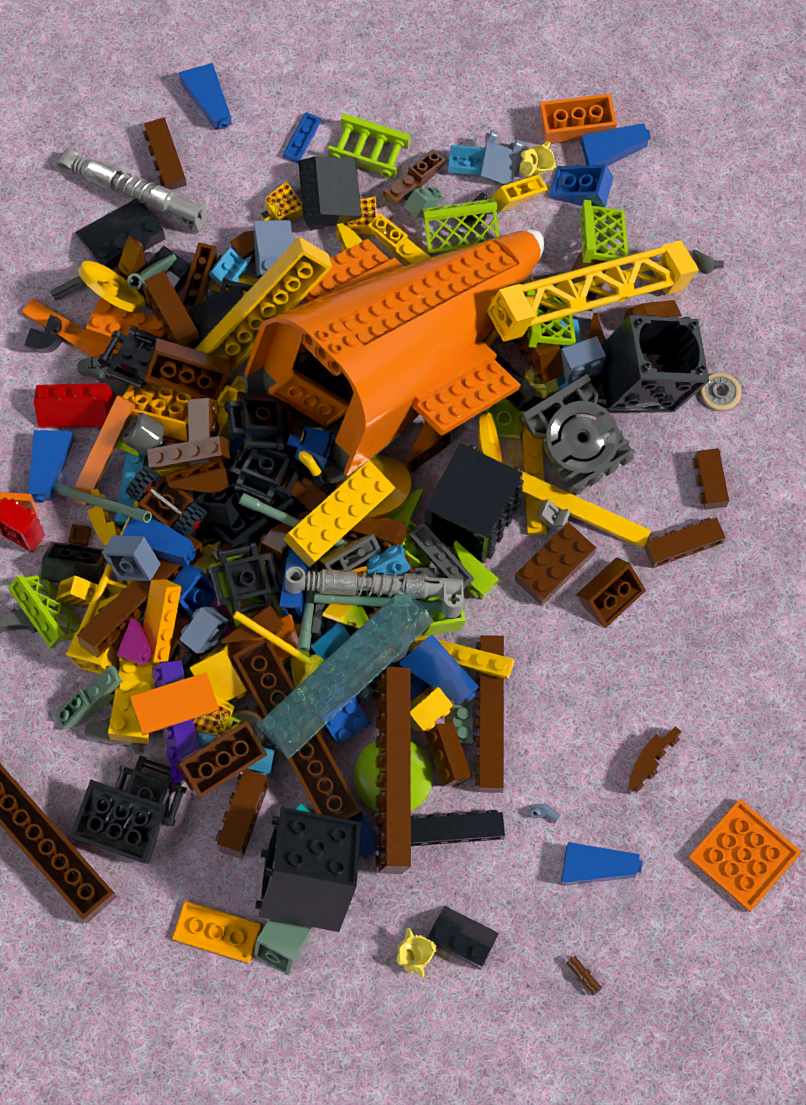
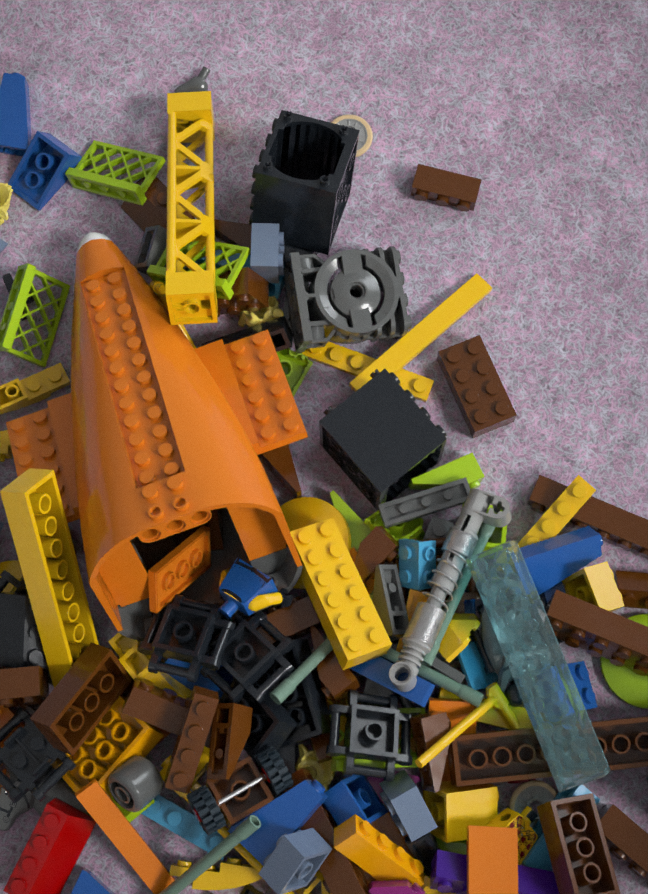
camera: 65 degrees left, 5 degrees up
(464, 723) = (618, 559): sand green plate -> none
(488, 437) = (316, 395): yellow dish -> none
(518, 192) = (19, 237): yellow slope -> none
(551, 515) = (422, 364): light grey bracket -> none
(611, 591) = (529, 343): reddish brown slope -> none
(660, 309) = (230, 166): reddish brown slope -> none
(684, 542) = (505, 245): reddish brown brick -> none

